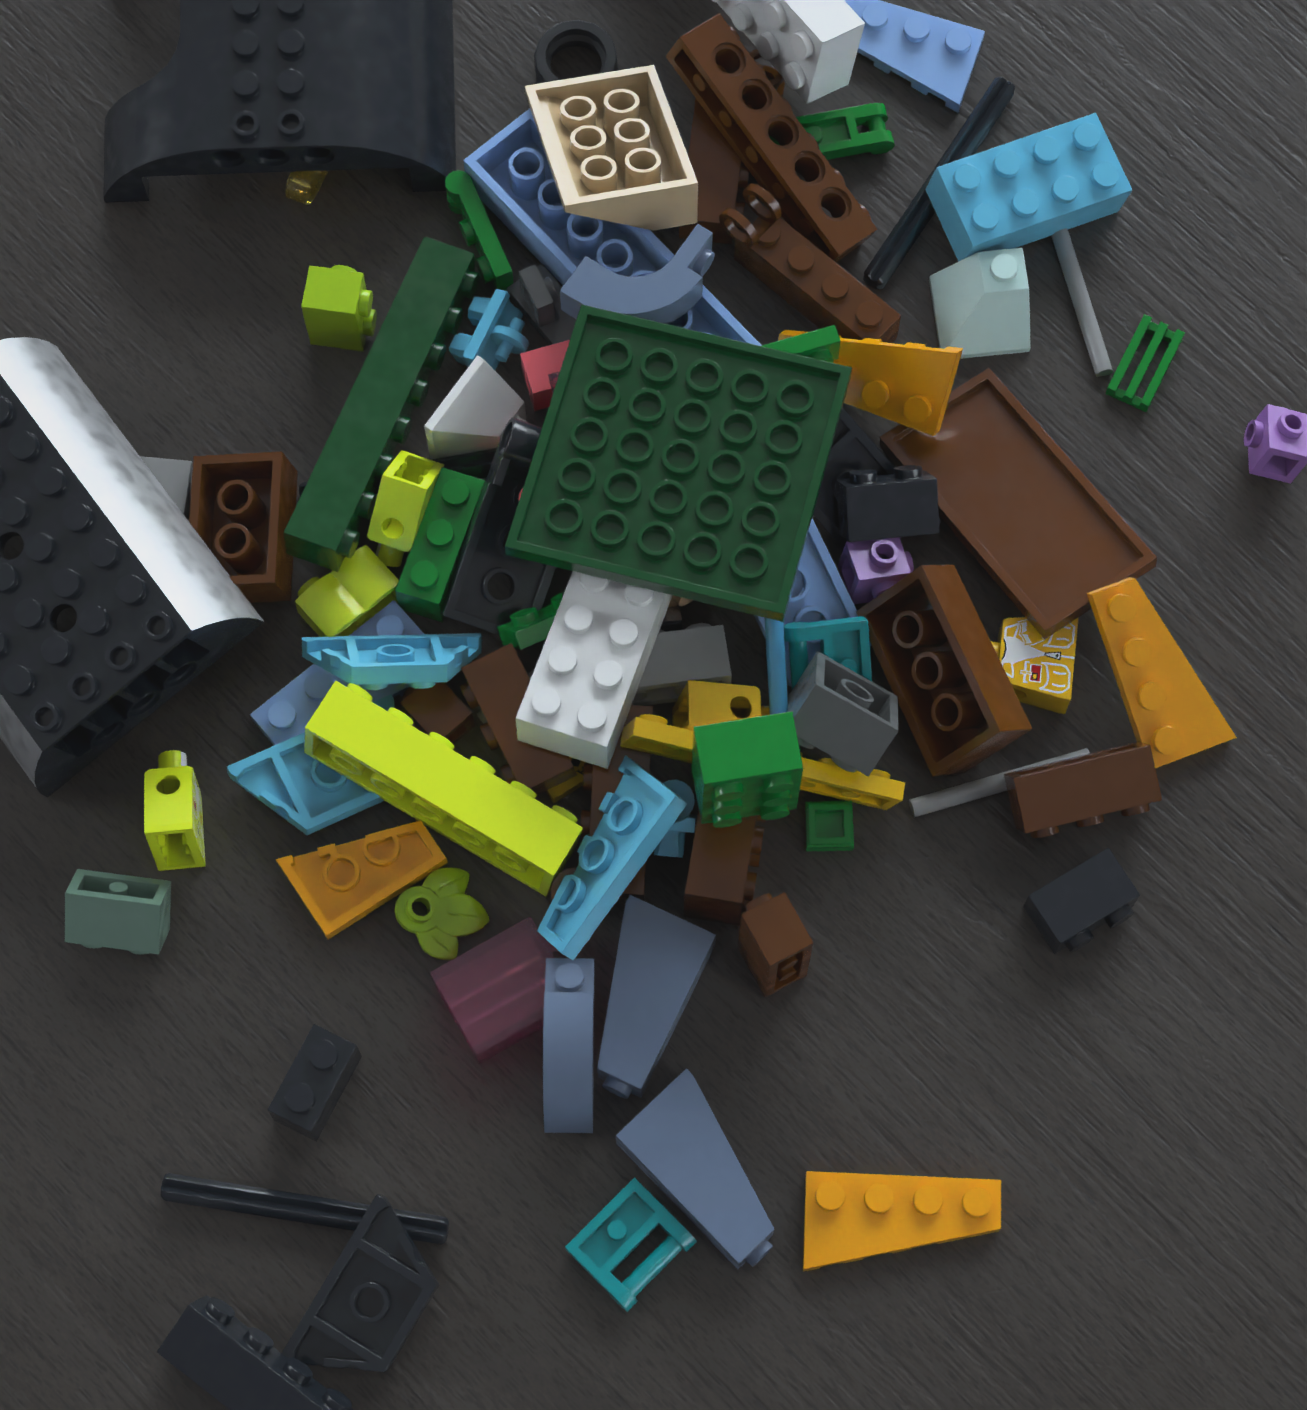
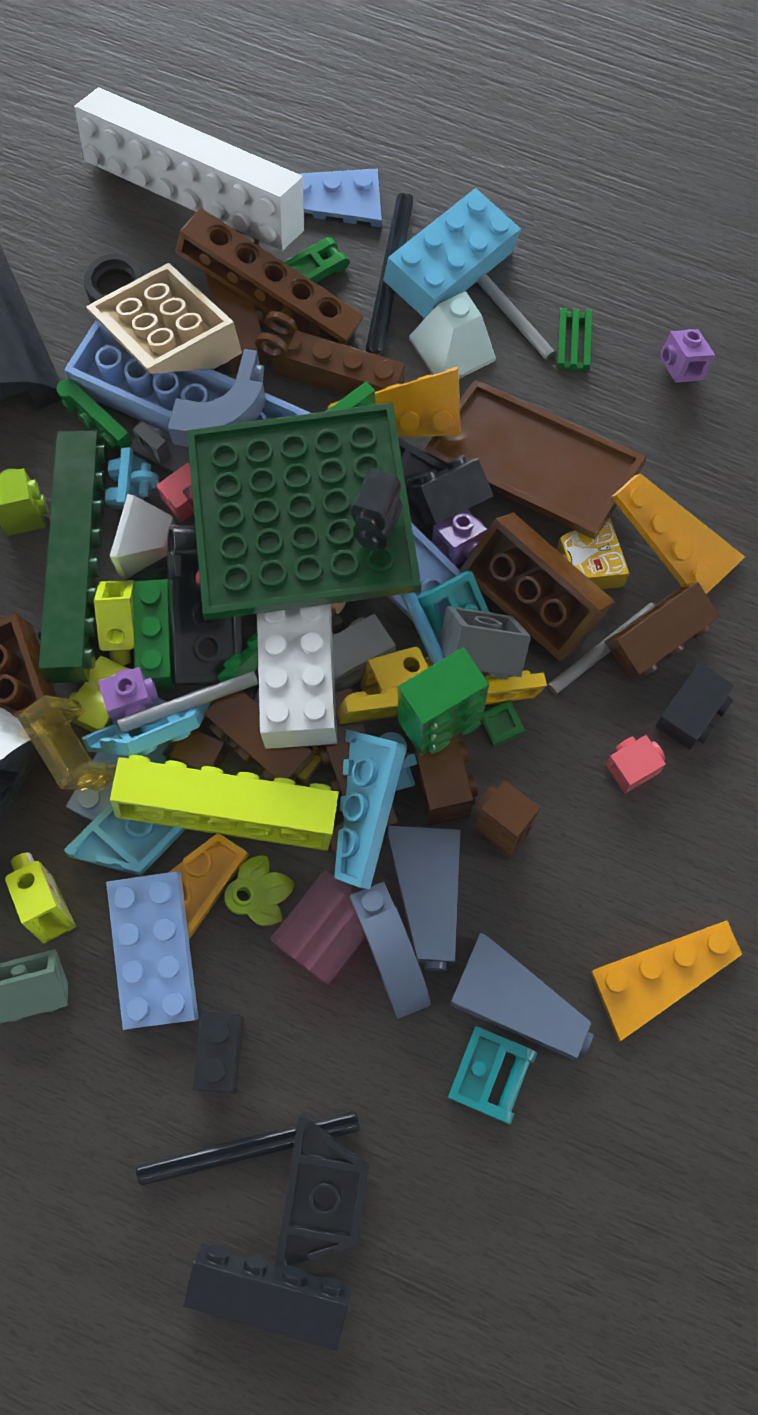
camera: 20 degrees left, 0 degrees up
(271, 639) = (50, 731): none -> clear yellow panel
(284, 929) = (152, 950): none -> light blue plate
(378, 609) = (127, 693): none -> medium lavender brick
(446, 645) = (187, 702): none -> light grey bar
(764, 501) = (376, 509): none -> black brick
(974, 941) = (635, 762): none -> coral brick

